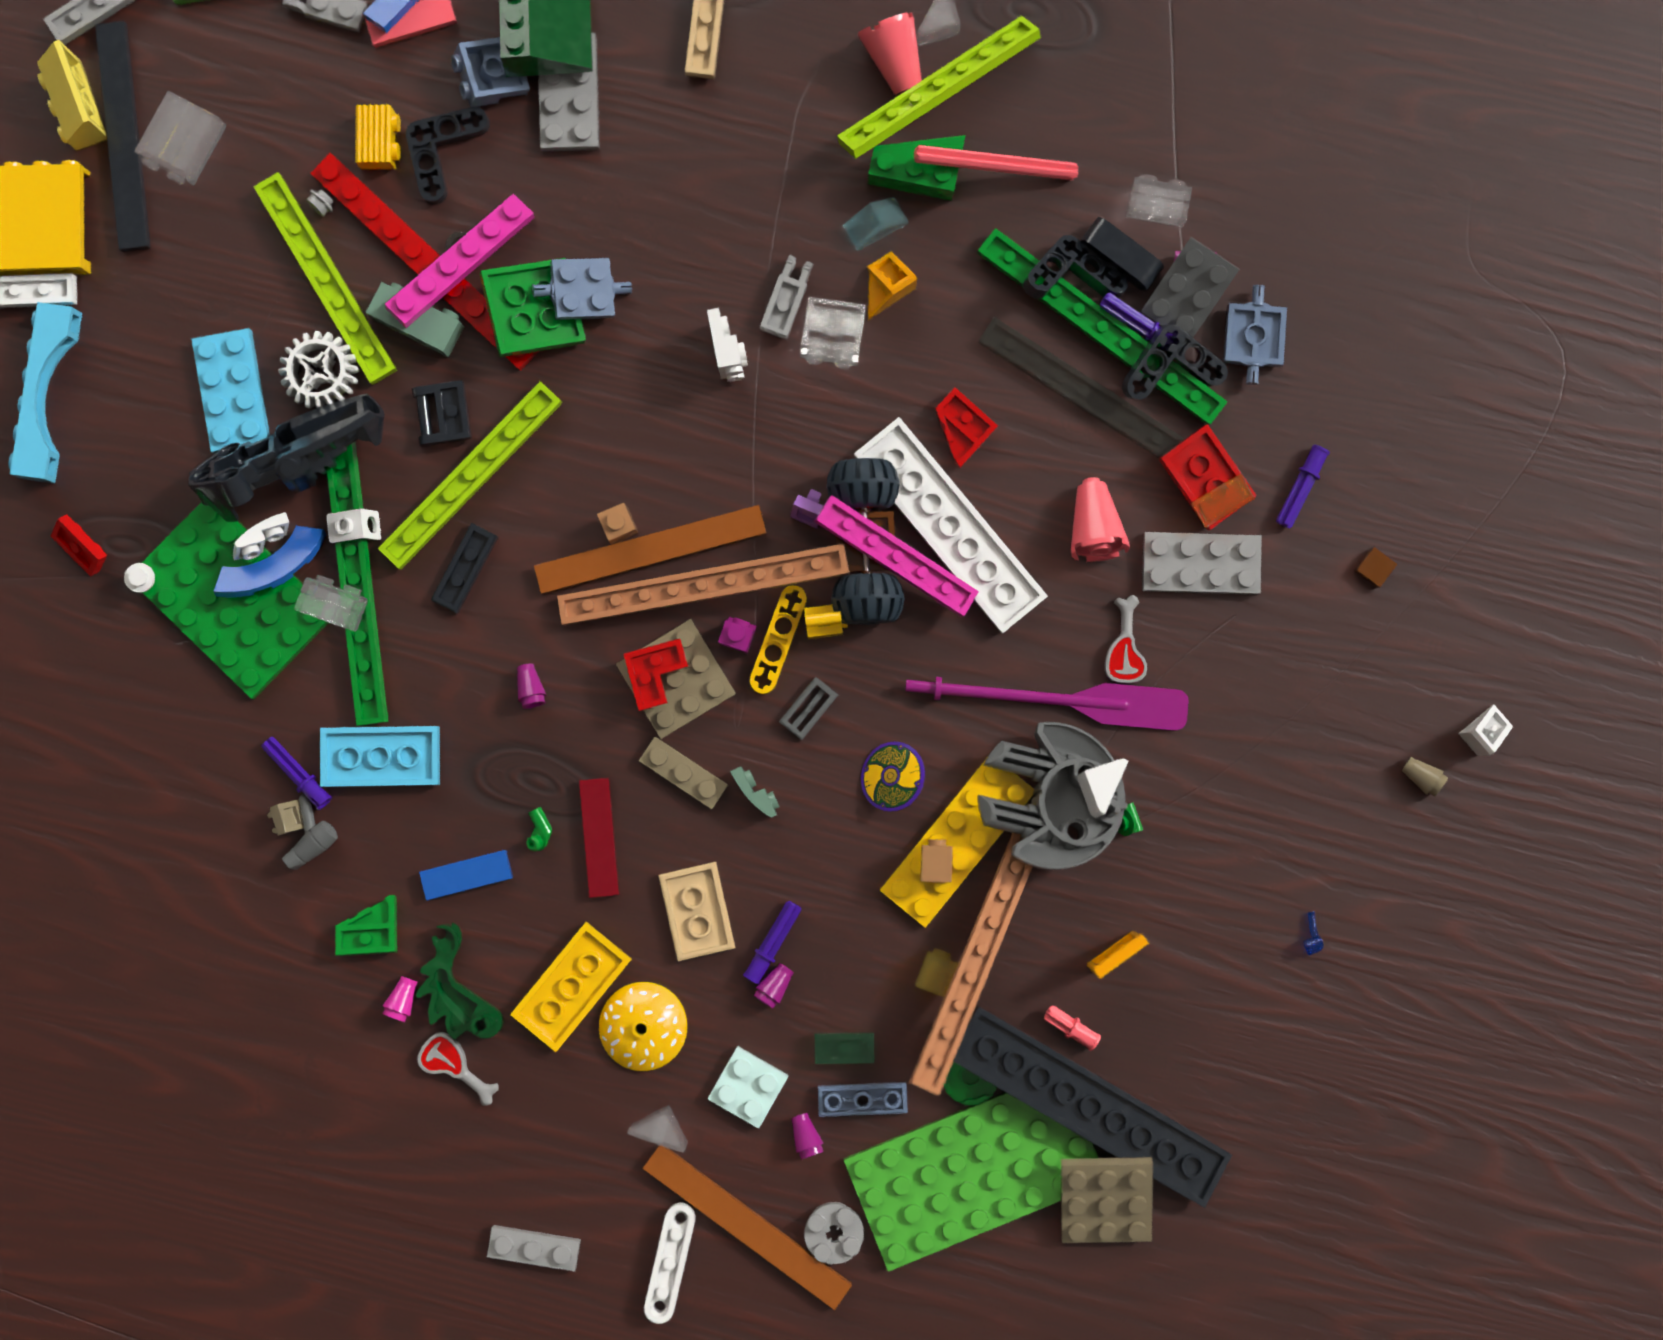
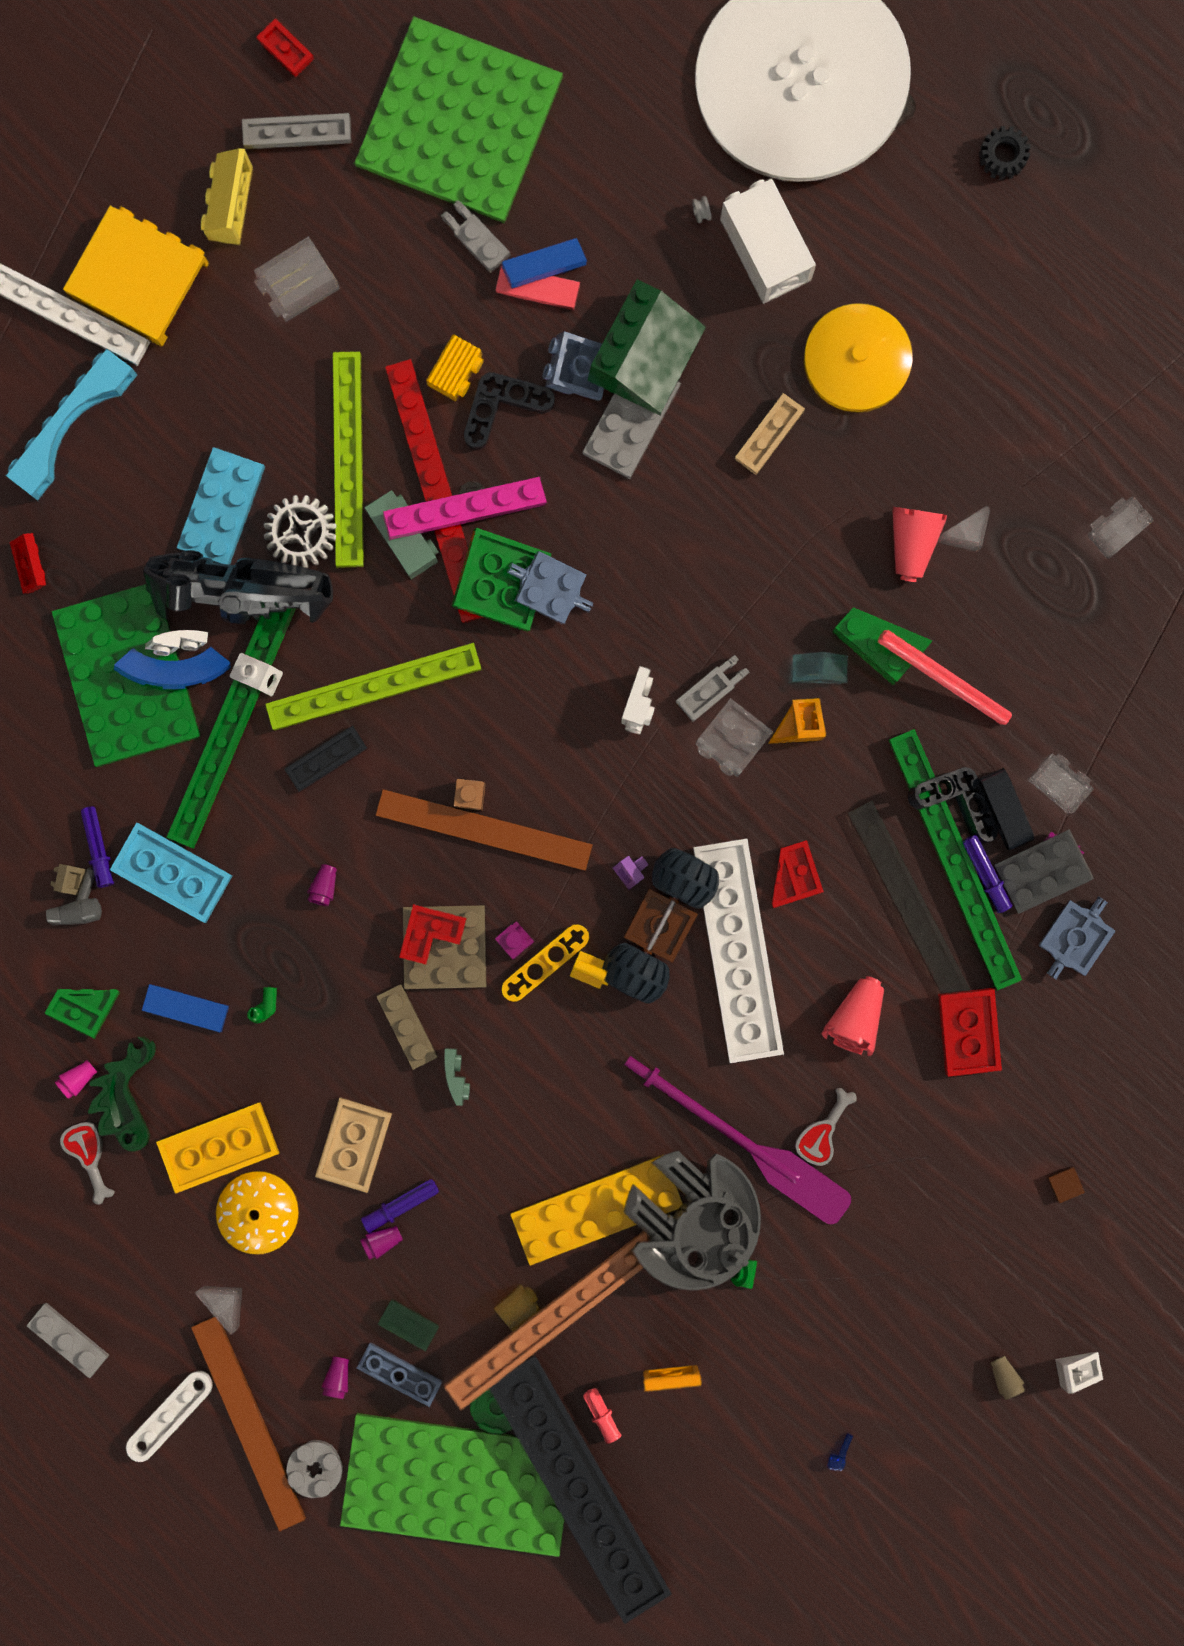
camera: 30 degrees right, 0 degrees up
(122, 136) = (251, 250): black tile -> none
(139, 577) = (61, 618): white plate -> none
(320, 202) = (379, 394): light grey plate -> none
(331, 604) = (202, 728): clear brick -> none
(451, 413) = (387, 625): black plate -> none
(599, 837) = (309, 1040): dark red tile -> none
(703, 584) = (510, 885): nougat plate -> none
(748, 1087) = (313, 1311): light aqua plate -> none
(793, 727) = (559, 1024): dark grey tile -> none
(892, 776) = (573, 1128): shield -> none
(896, 556) = (678, 953): dark pink plate -> none
(936, 861) = (568, 1218): medium nougat brick -> none
(938, 87) = (934, 588): lime plate -> none
(1100, 784) = (736, 1234): white slope -> none
(1106, 1200) = (548, 1571): dark tan plate -> none
(1175, 352) = (1002, 915): black beam -> none
(1201, 563) = (925, 1099): light grey plate -> none
(1223, 500) = (971, 1059): clear orange tile -> none
(1302, 486) = (1044, 1083): dark purple axle -> none

